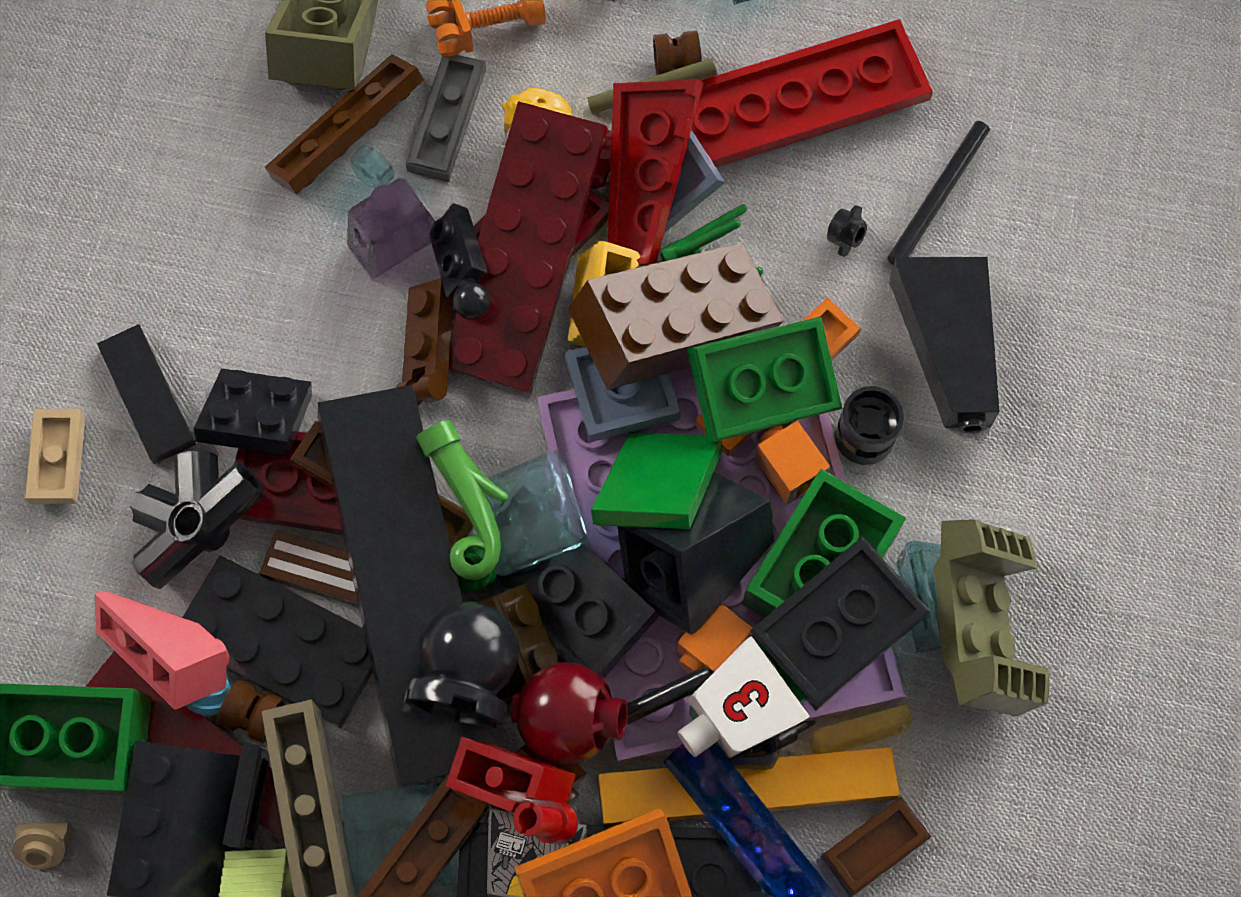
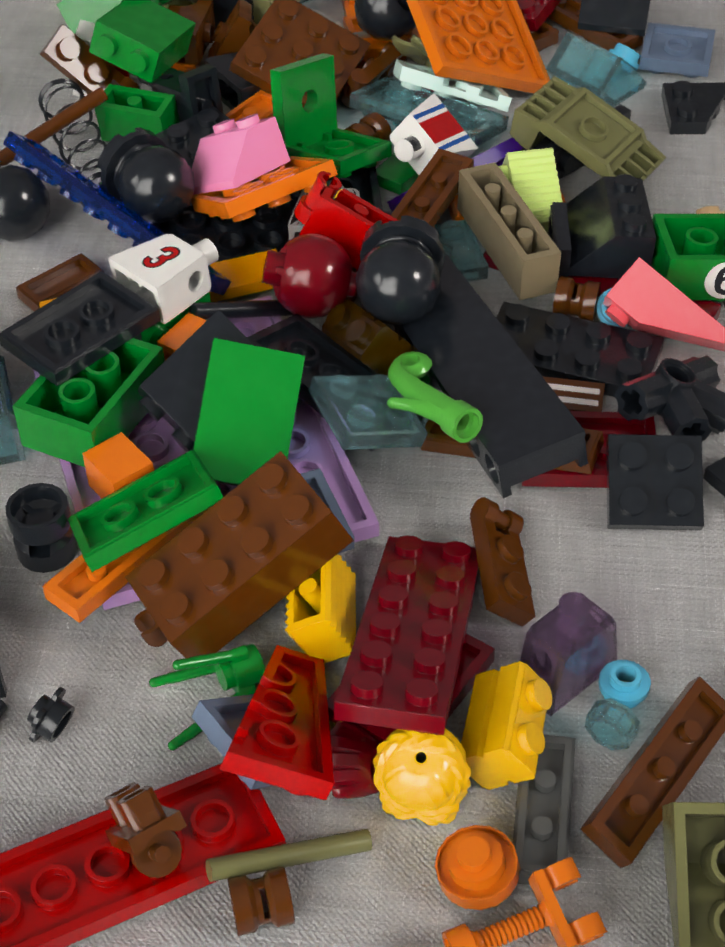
camera: 175 degrees right, 25 degrees down
(338, 202) = (628, 693): none -> medium azure plate
(460, 262) = (480, 602): black plate -> none
(462, 162) = (506, 725): none -> yellow brick
(509, 62) = (477, 867): none -> orange plate
(763, 80) = (145, 829): none -> reddish brown hips

